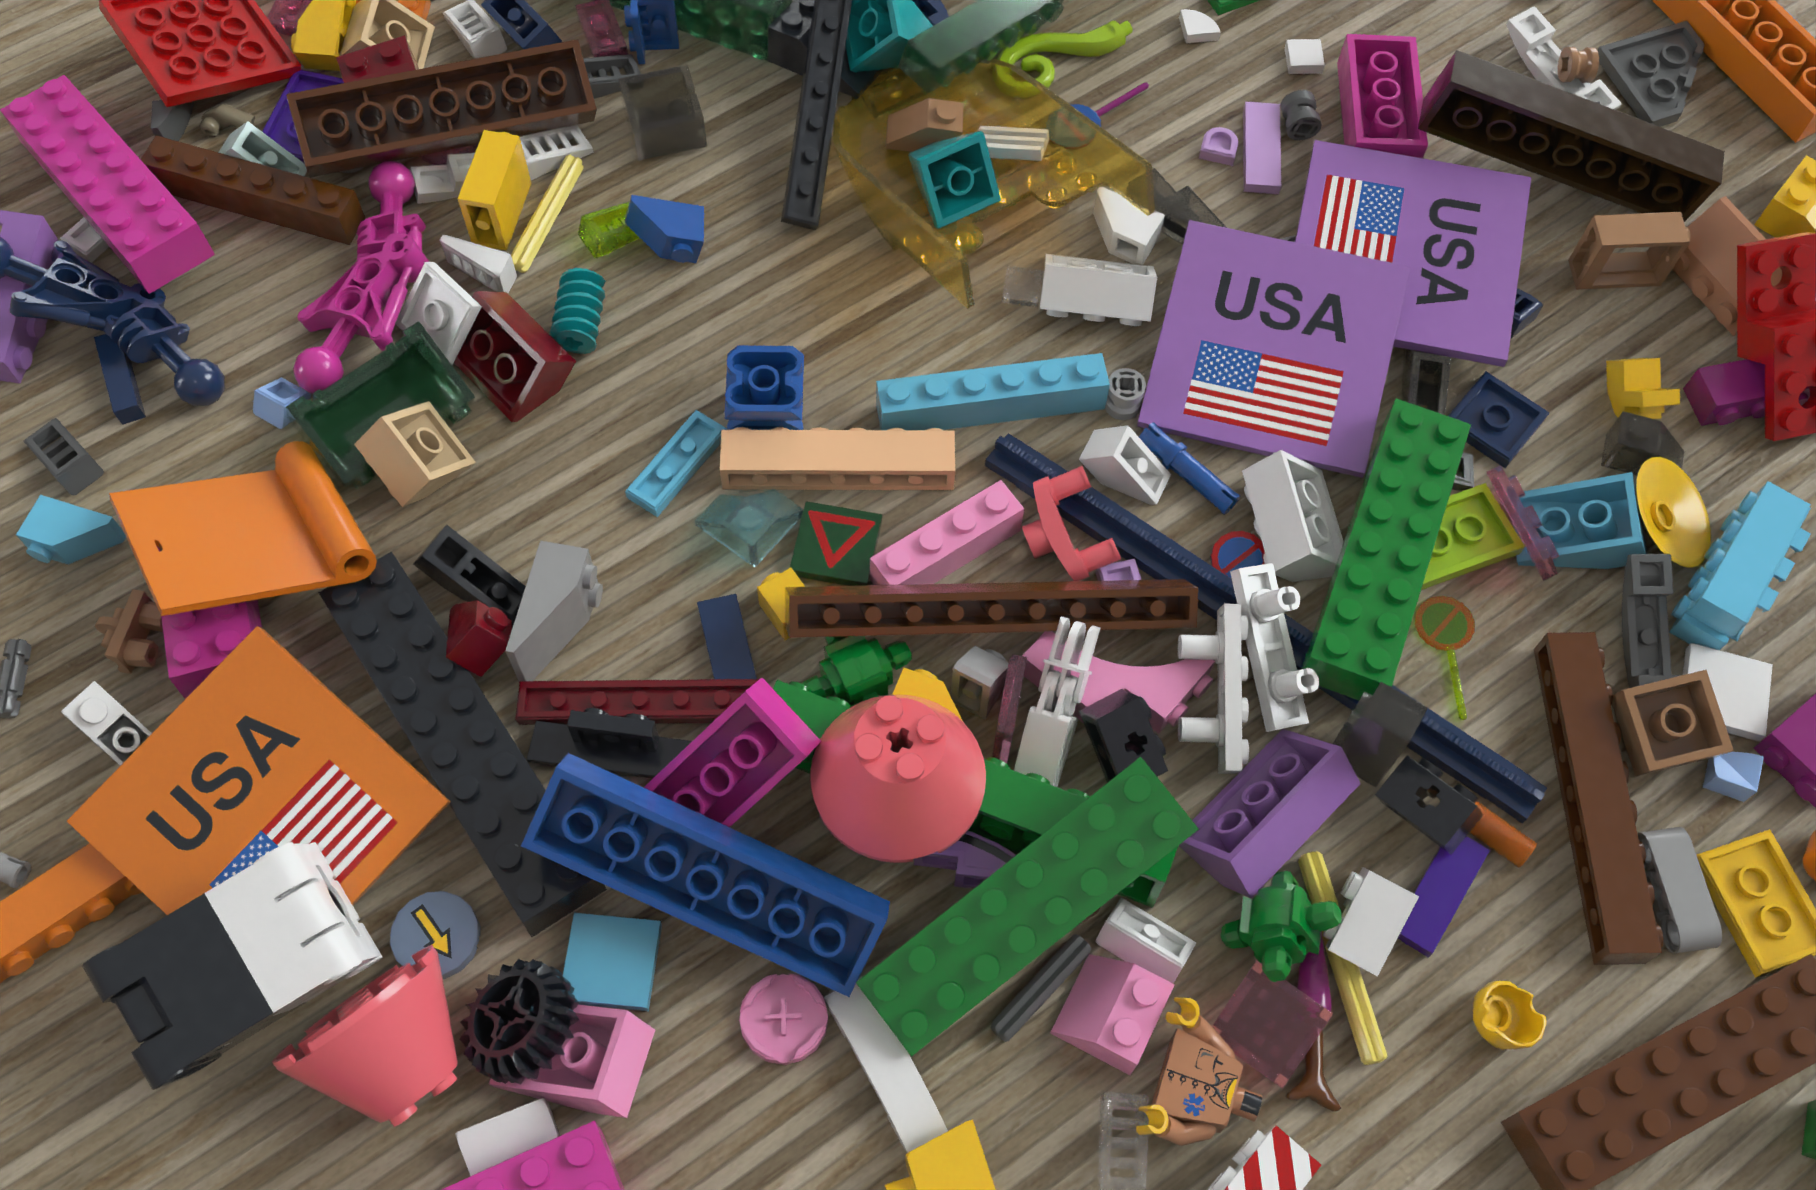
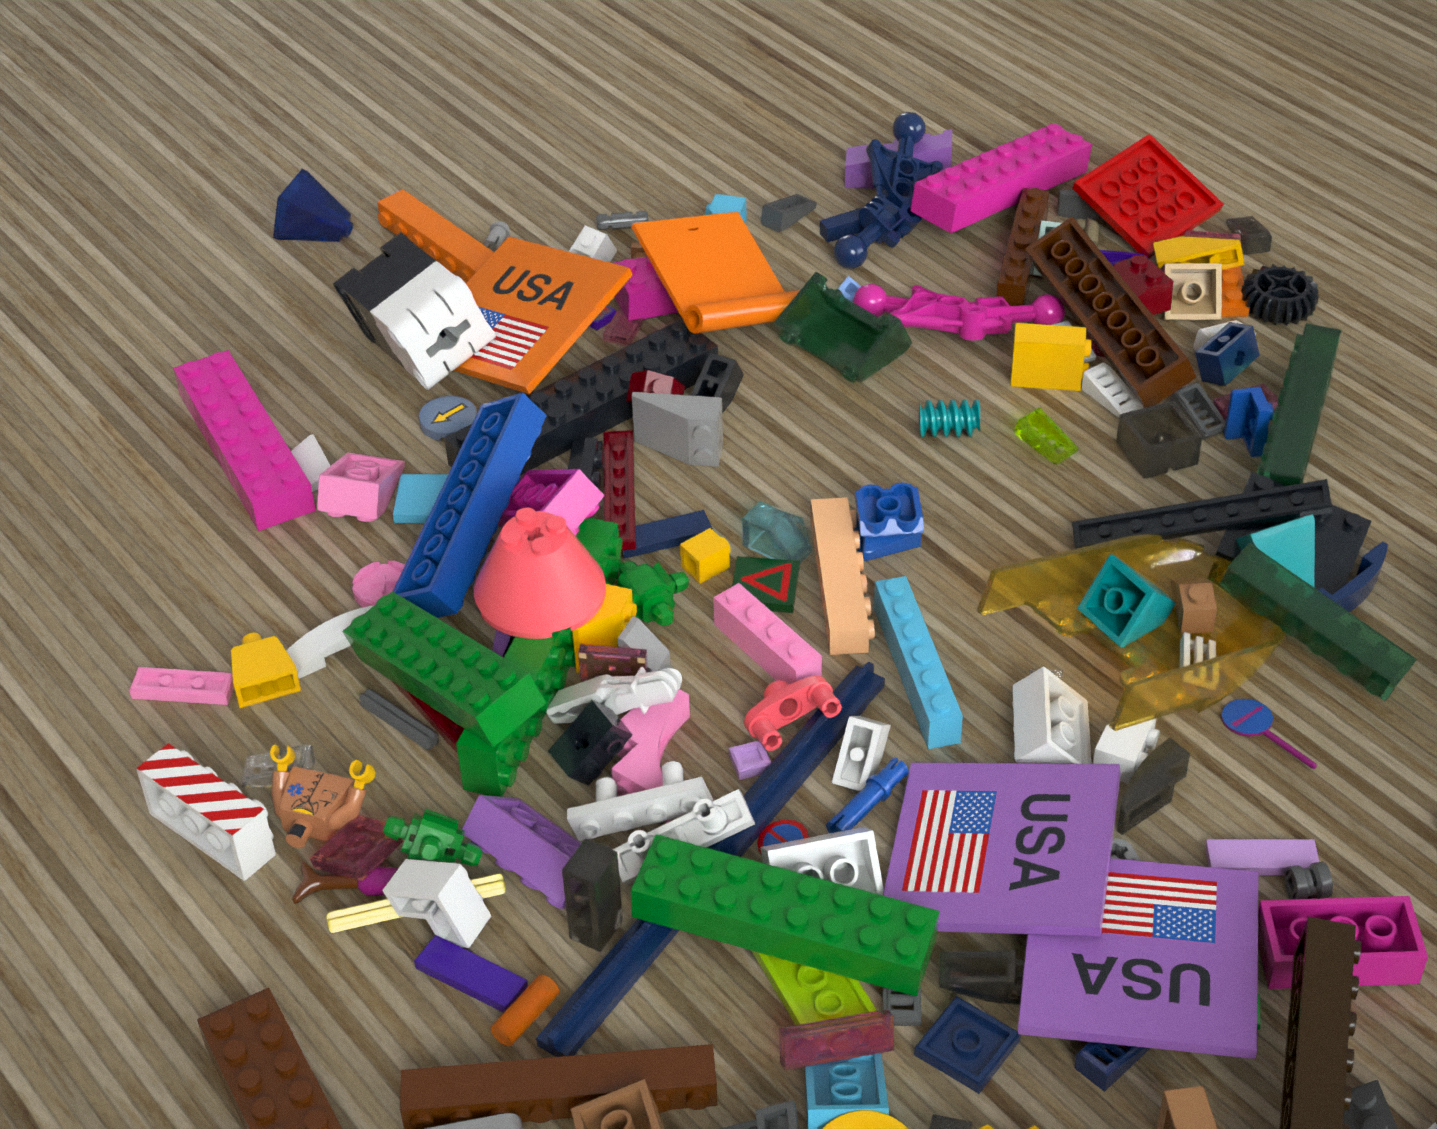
camera: 90 degrees right, 20 degrees down
(381, 1044) = (364, 385): coral cone -> none
(414, 452) = (806, 352): tan slope -> none
(441, 308) = (927, 345): white tile -> none
(482, 263) = (982, 369): white slope -> none
(512, 356) = (900, 394): dark red slope -> none
(519, 1021) = (380, 448): black gear -> none
(546, 213) = (1048, 397): light yellow axle -> none
(668, 227) = (1041, 458): blue slope -> none
(675, 463) = (813, 485): medium azure tile -> none
(988, 607) = (700, 657): reddish brown brick -> none
(1088, 44) = (1351, 722): lime plant -> none
(1113, 1011) = (387, 754): bright pink slope -> none
(1125, 394) = (936, 745): light grey wheel -> none
(1145, 941) = (433, 782): white slope -> none
(1198, 27) = (1406, 805): white tile -> none
(1219, 146) = (1254, 823): lavender tile -> none
(1304, 56) = (1400, 886): white tile -> none
(1442, 824) = (539, 948): black brick -> none
(1447, 627) = (728, 995): clear neon green piece -> none
(1507, 1016) = (355, 1002): yellow hair -> none

